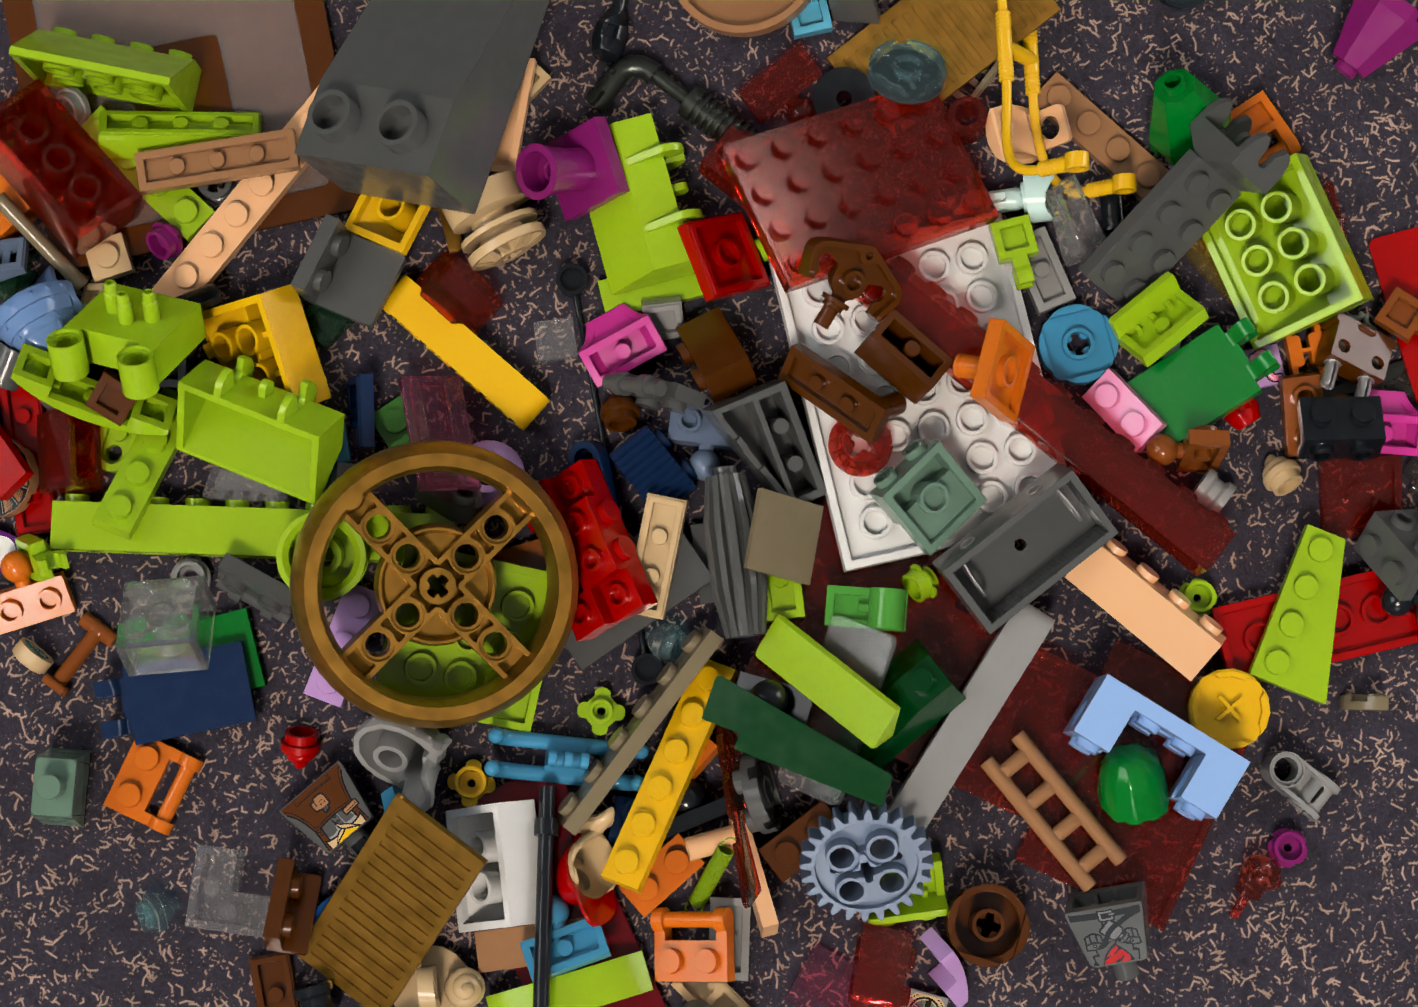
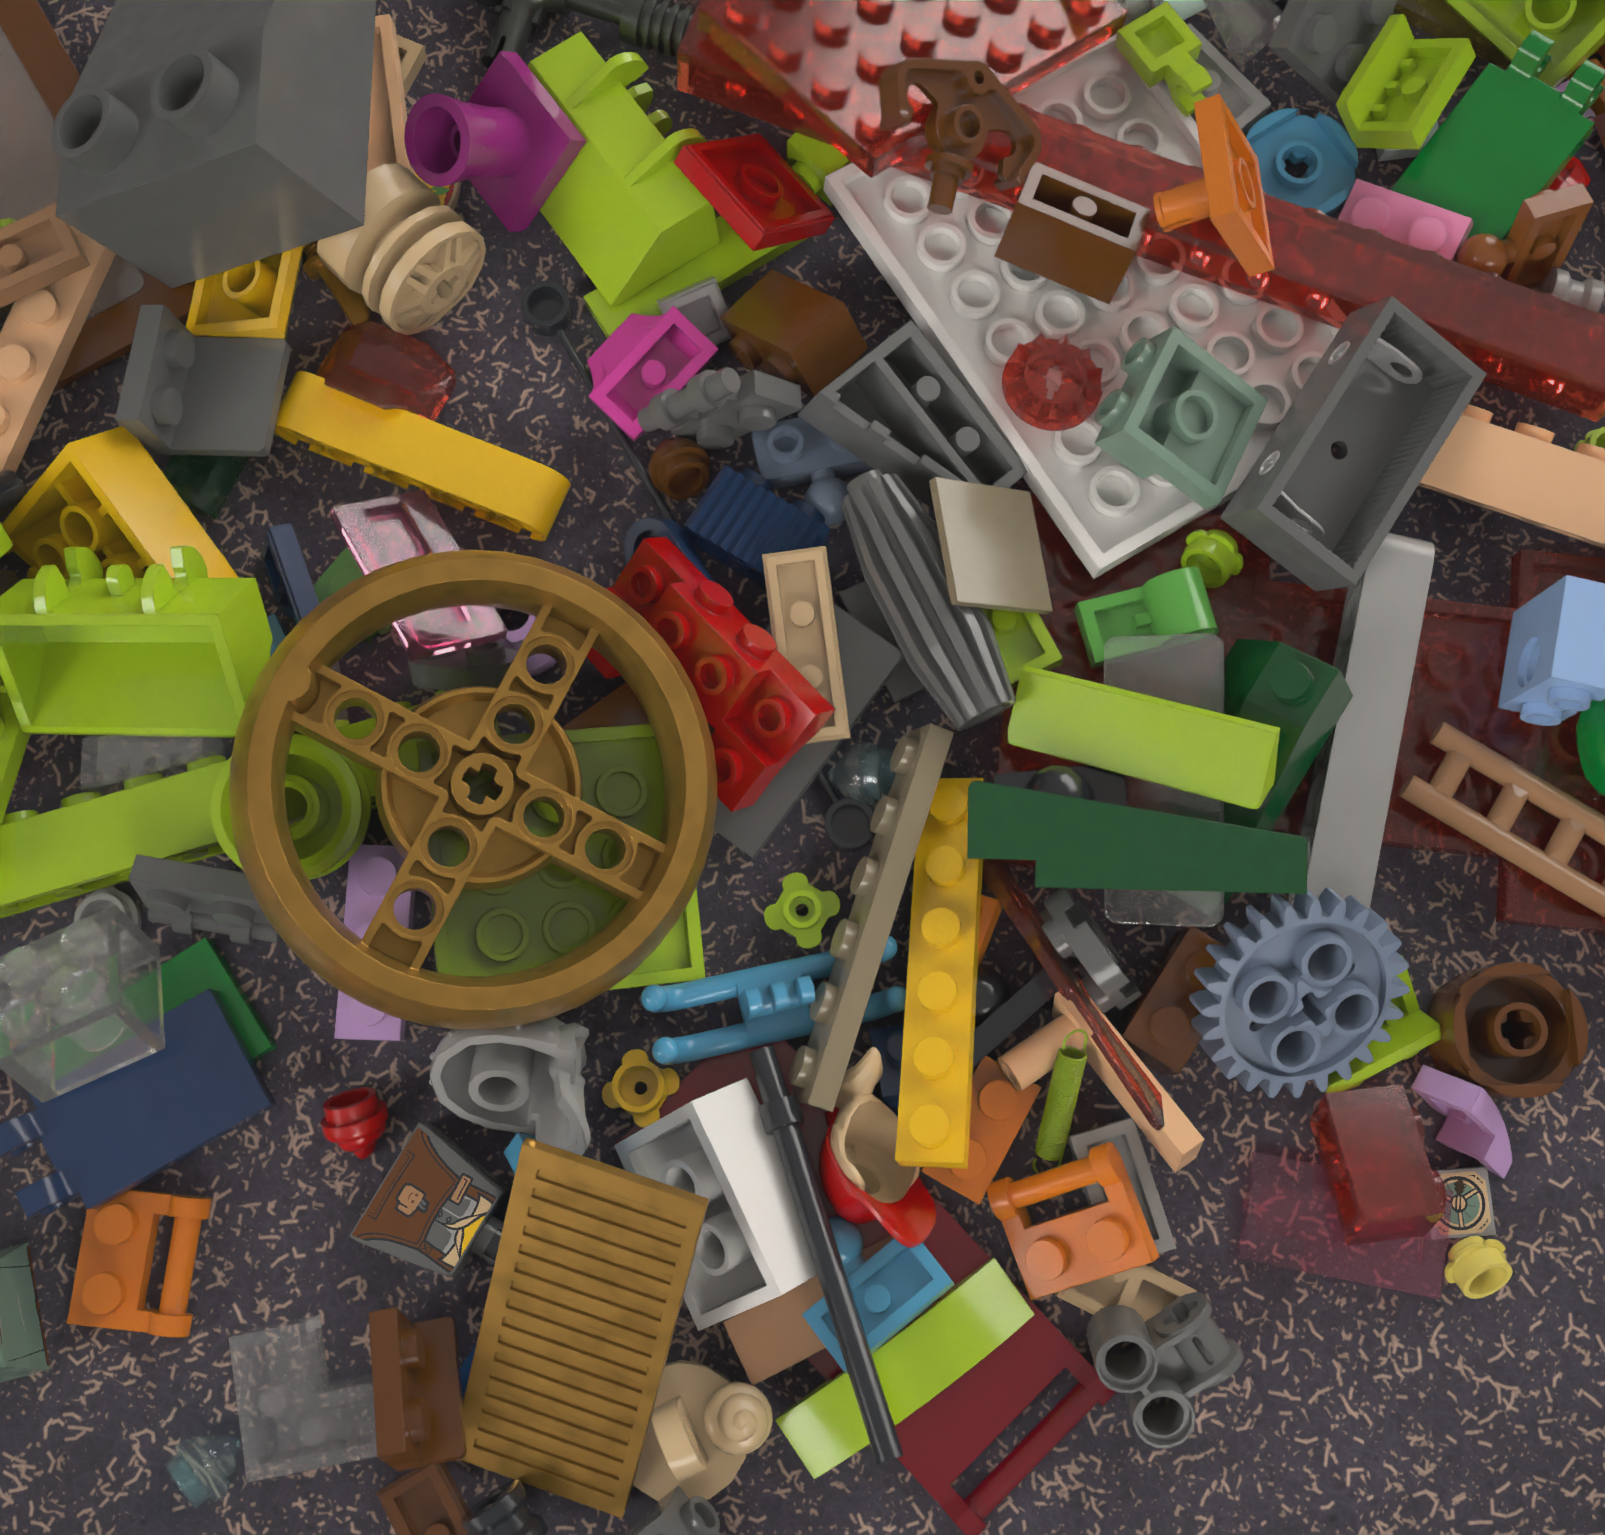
camera: 20 degrees left, 5 degrees down
(555, 340) = (550, 396): clear plate -> none
(839, 393) = (996, 311): reddish brown piece -> none

